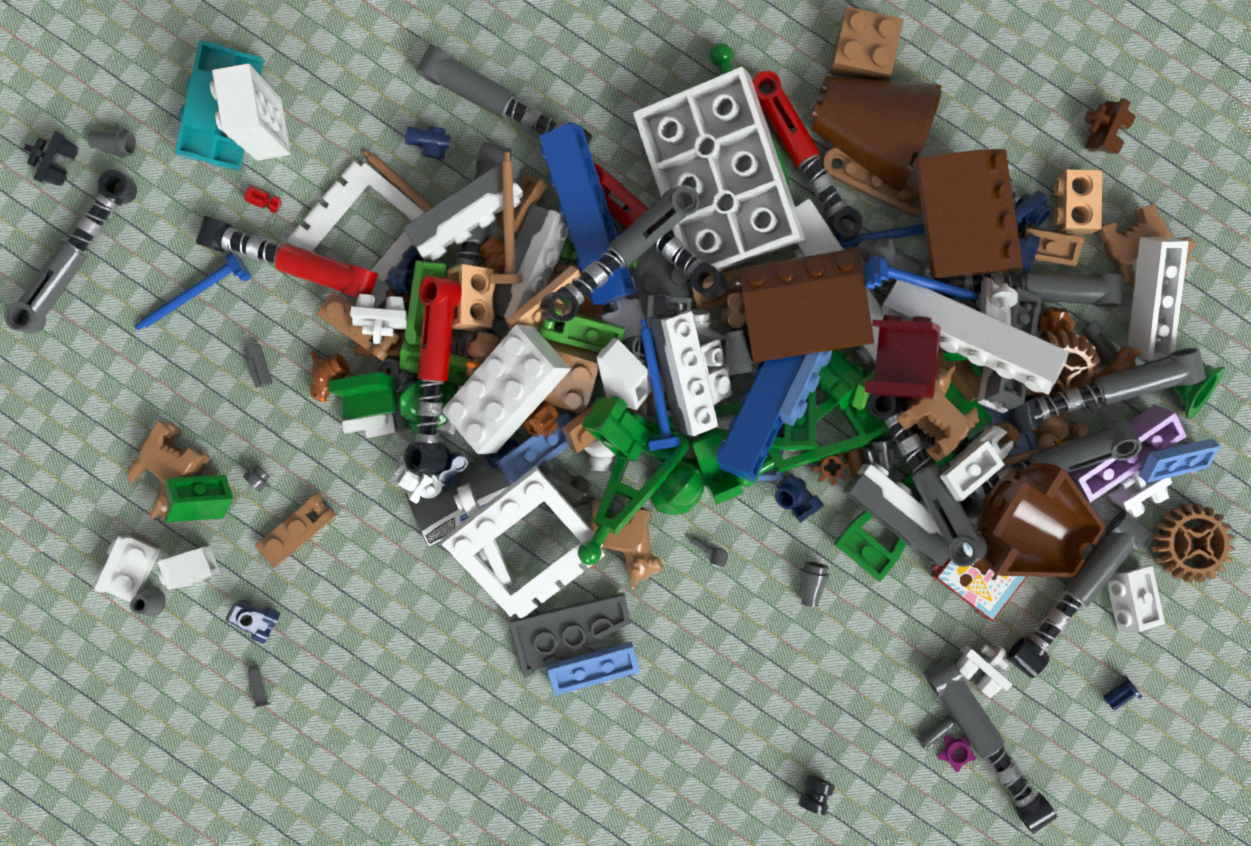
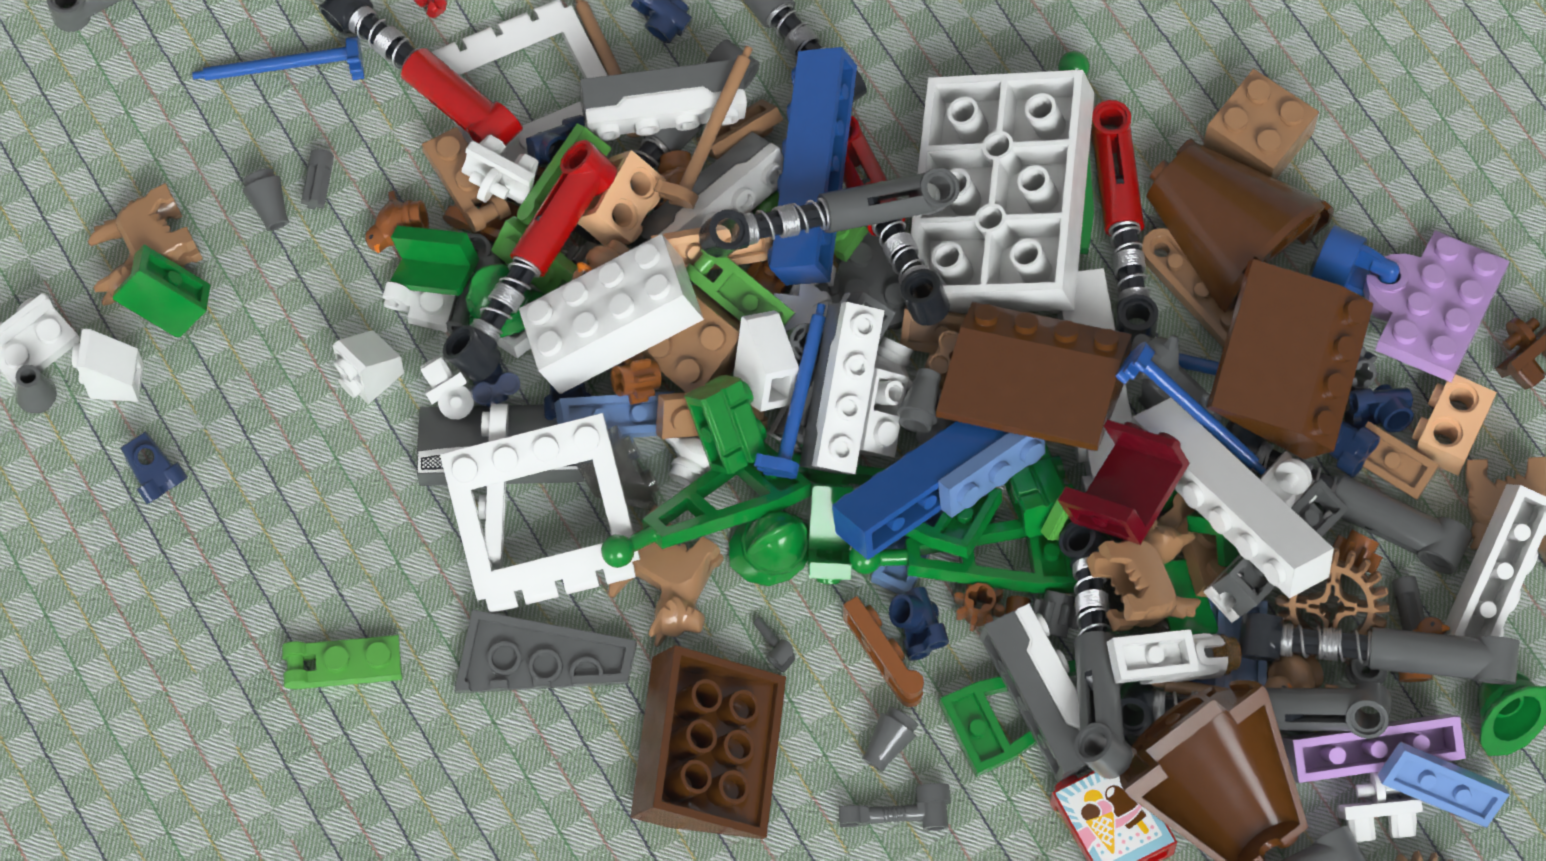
camera: 20 degrees right, 20 degrees down
(230, 395) = (266, 197): none -> dark grey cone
(257, 478) = (246, 306): dark grey plate -> none
(257, 686) = (111, 556): dark grey piece -> none
(295, 531) = (260, 390): medium nougat plate -> none
(357, 487) = (366, 365): none -> white slope
(443, 690) = (342, 662): none -> bright green plate
(593, 668) = (550, 716): medium blue plate -> none
(702, 641) = (708, 745): none -> reddish brown slope
(785, 528) = (884, 653): none -> dark orange plate
(859, 617) = (930, 809): none -> dark grey brick
(1027, 121) = (1427, 300): none -> lavender plate

